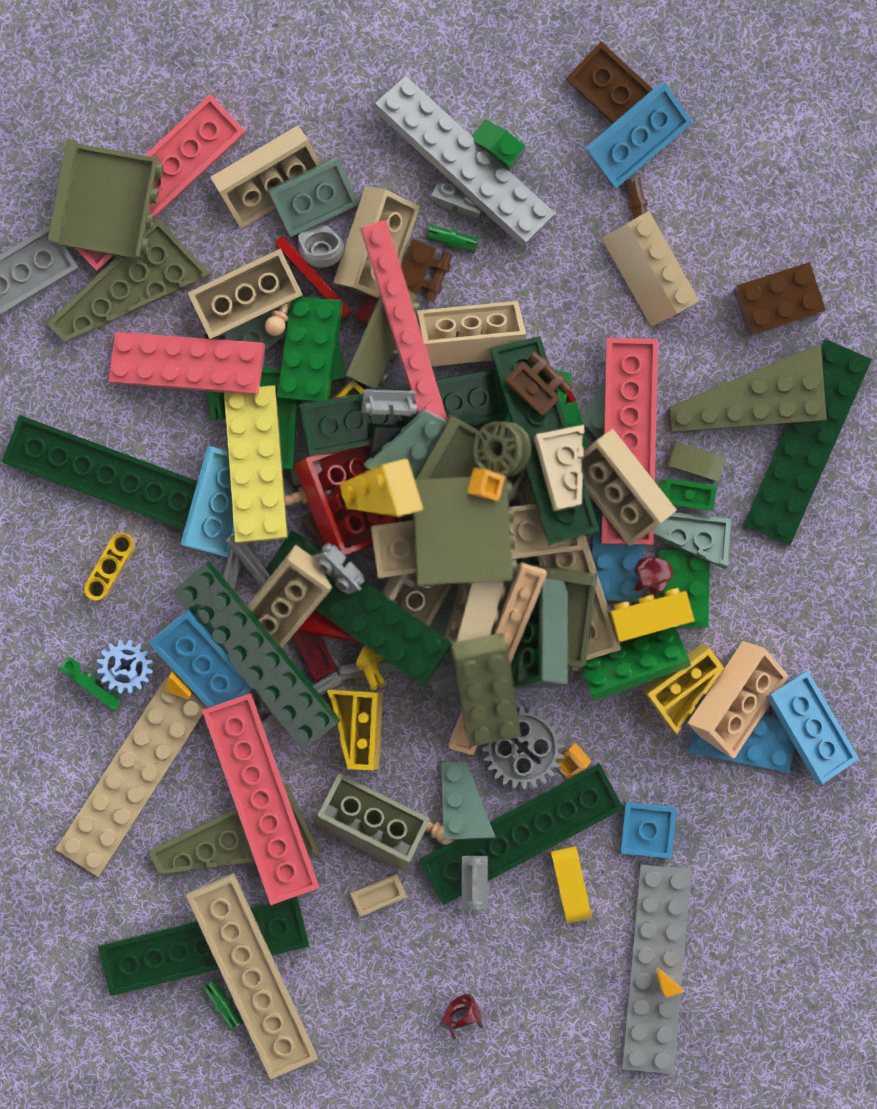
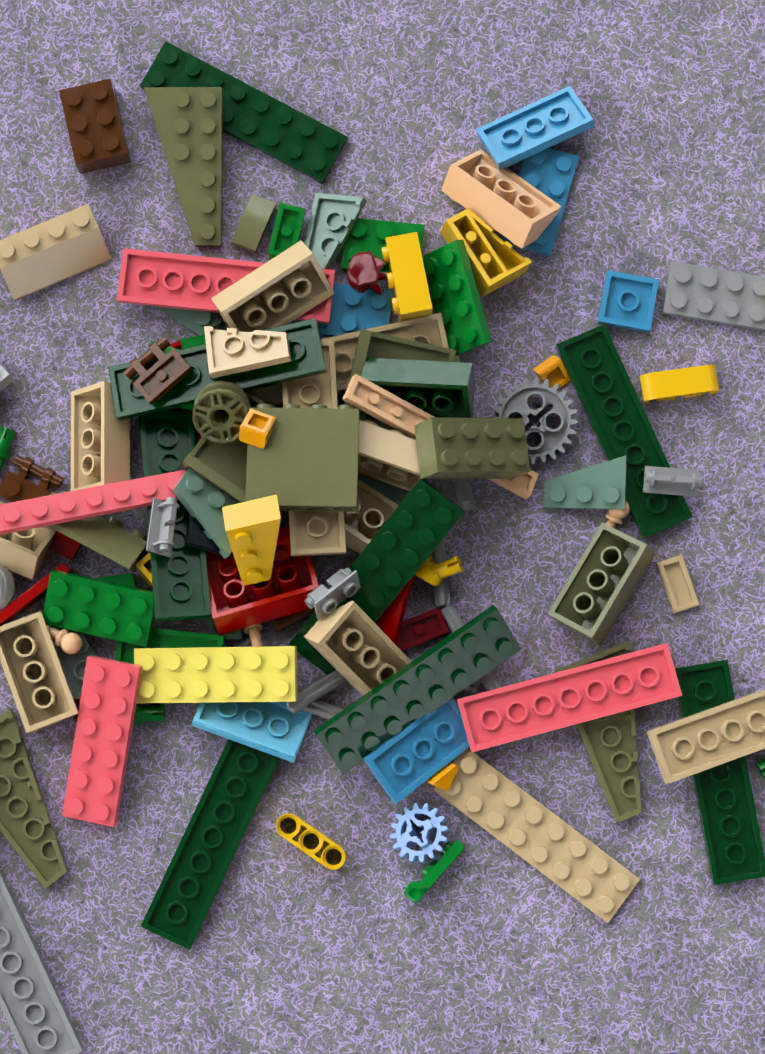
camera: 85 degrees left, 5 degrees down
(359, 726) = (500, 587): yellow wedge -> none

